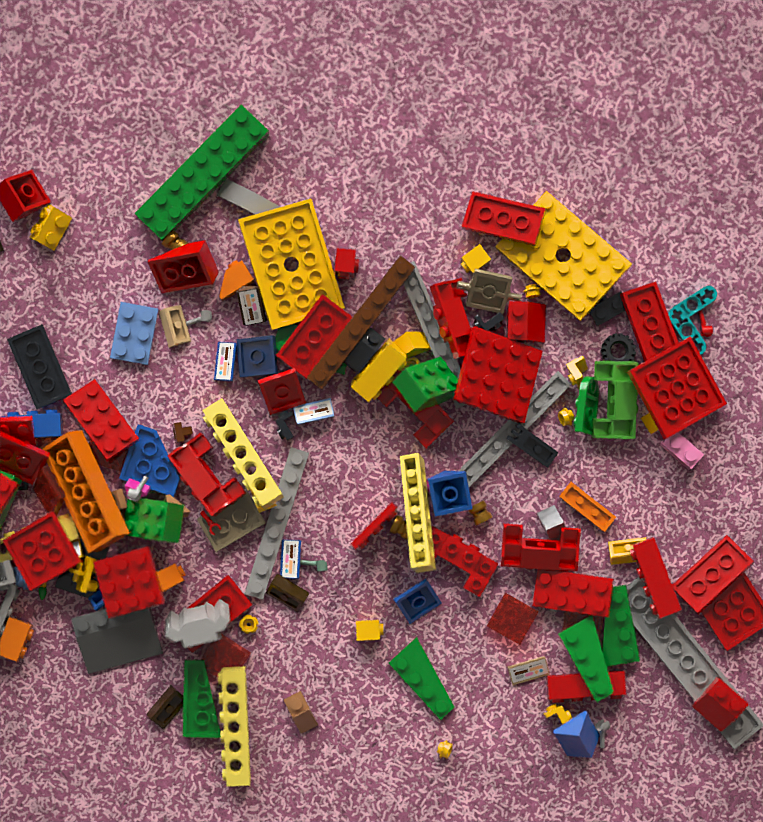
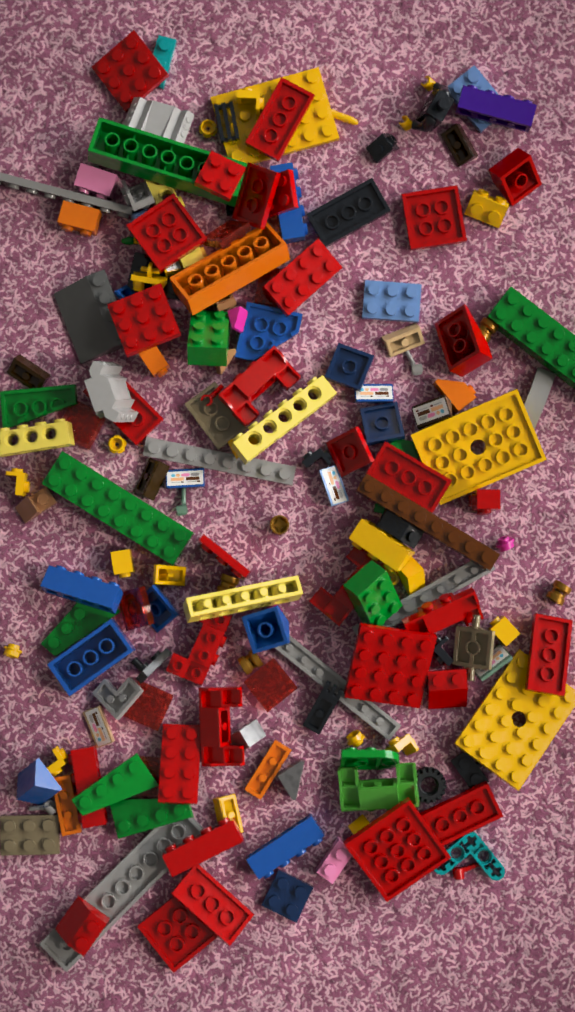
camera: 85 degrees right, 0 degrees up
(54, 281) = (433, 218): none -> red plate
(135, 495) = (231, 317): light grey hand -> none
(180, 432) = (299, 357): reddish brown tile -> none
(196, 383) = (349, 367): none -> dark blue plate
(278, 723) = (22, 485): none -> yellow bracket
(313, 629) = (118, 508): none -> green brick
(347, 469) = (277, 523): none -> pearl gold wheel
(386, 584) = (169, 575): none -> yellow slope
(389, 248) = (505, 543): none -> dark pink plate
(391, 672) = (82, 589): none -> blue brick
(415, 621) = (136, 608): none -> clear red plate
(448, 203) = (557, 597): none -> pearl gold wheel
(459, 669) = (91, 657): none -> blue brick
(477, 615) = (147, 669): none -> black plate
(502, 266) = (500, 658): none -> slope
(504, 495) = (270, 684): none -> clear red plate
(505, 647) = (119, 700): none -> light grey plate
(532, 291) = (478, 691): yellow plate -> none
(598, 484) = (291, 777): none -> flat silver slope
(604, 708) = (65, 807): none -> orange plate
(627, 749) = (29, 834): none -> dark tan plate
(664, 498) = (285, 846): none -> blue brick
(712, 500) = (287, 895): none -> dark blue plate

